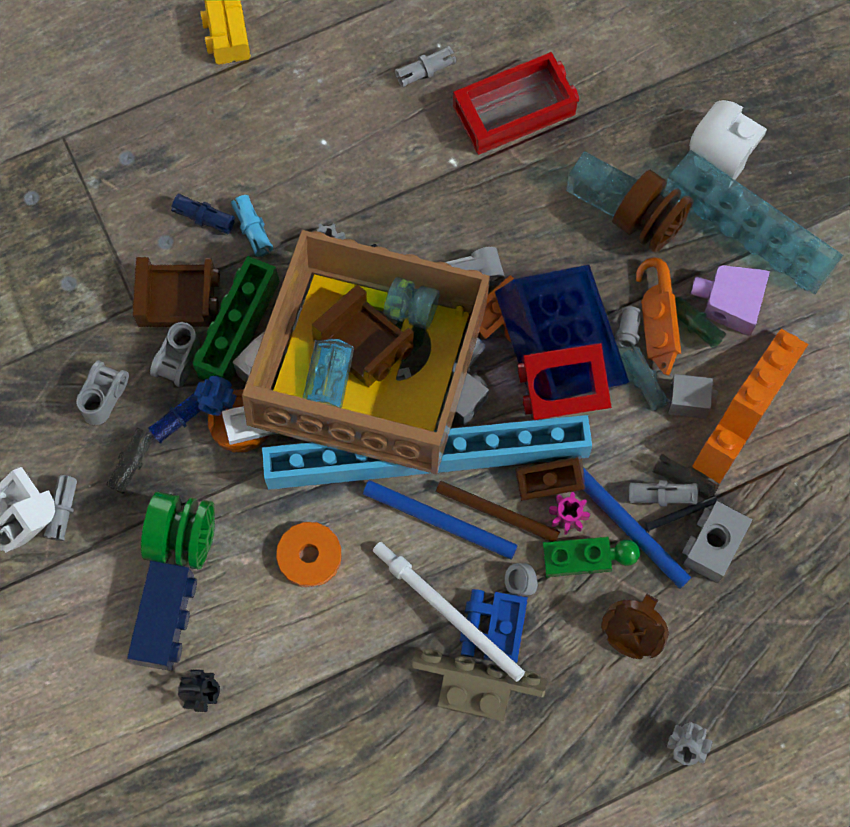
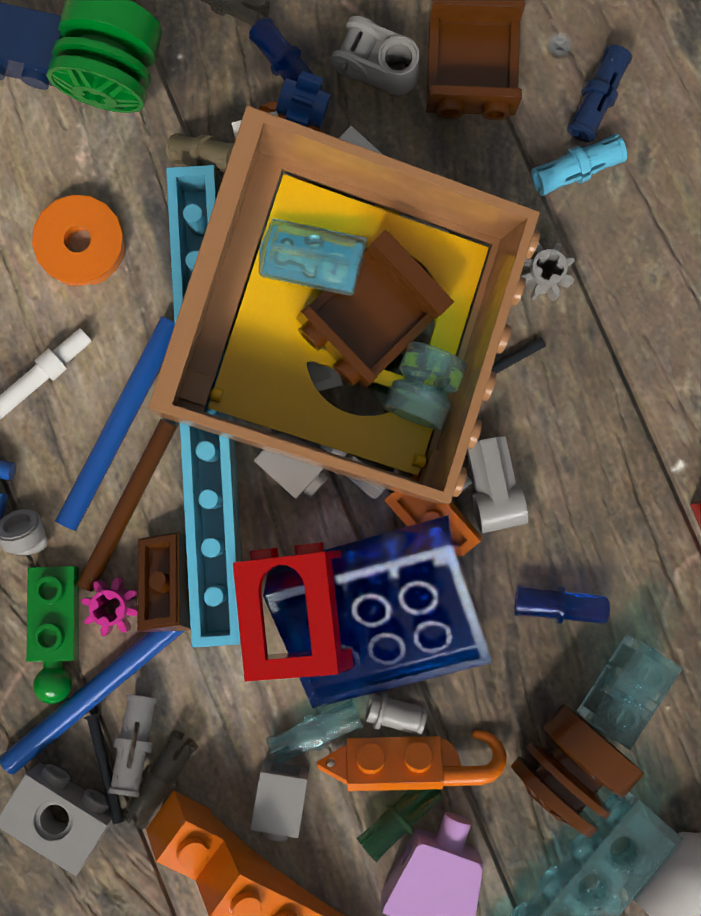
camera: 90 degrees right, 15 degrees up
(237, 320) = (418, 132): green brick -> none
(249, 460) = (199, 151): none -> dark tan pin
(549, 228) = (561, 605): none -> clear blue axle

